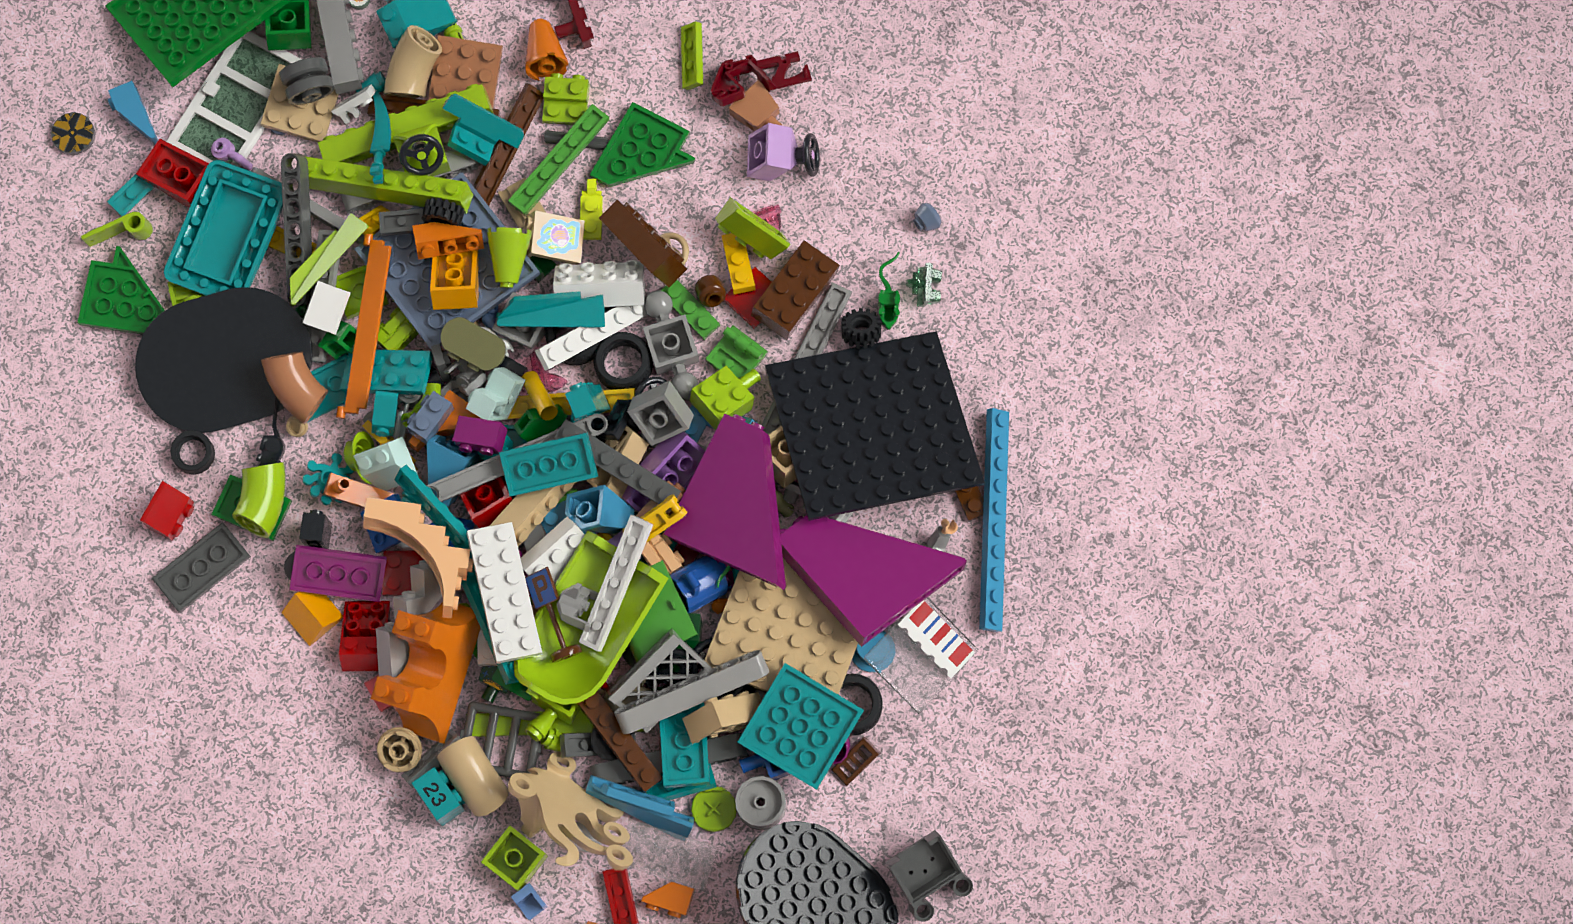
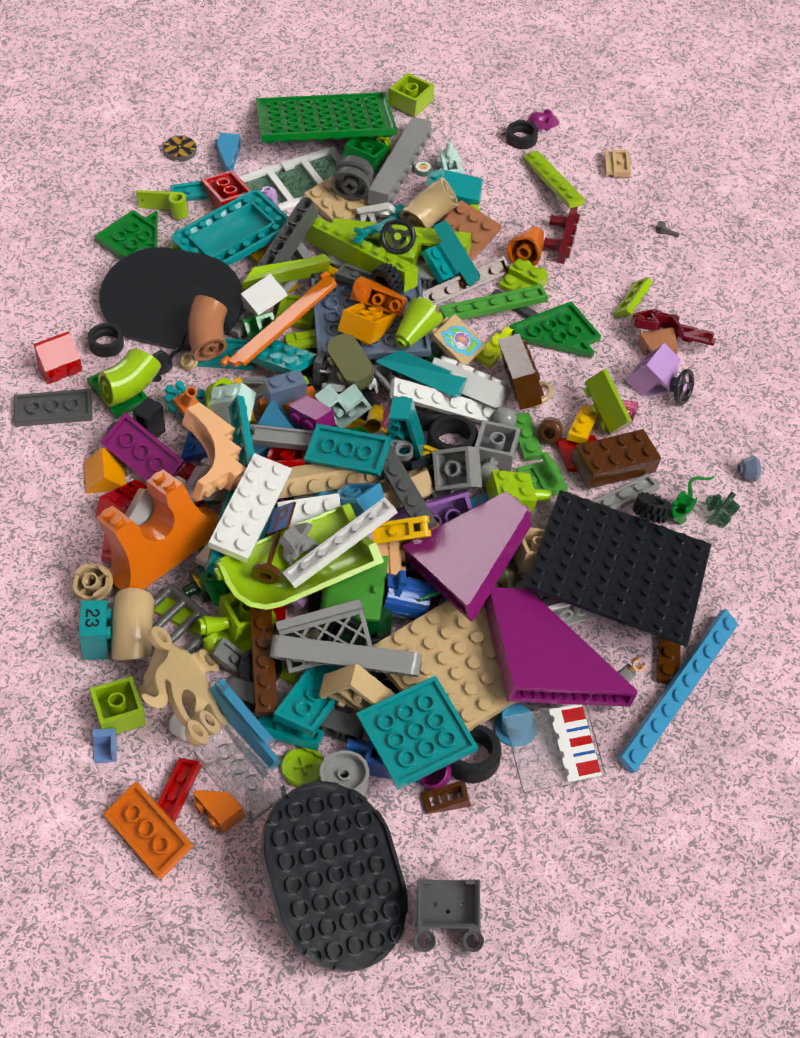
camera: 25 degrees right, 25 degrees down
(384, 413) = (255, 370): teal slope -> none

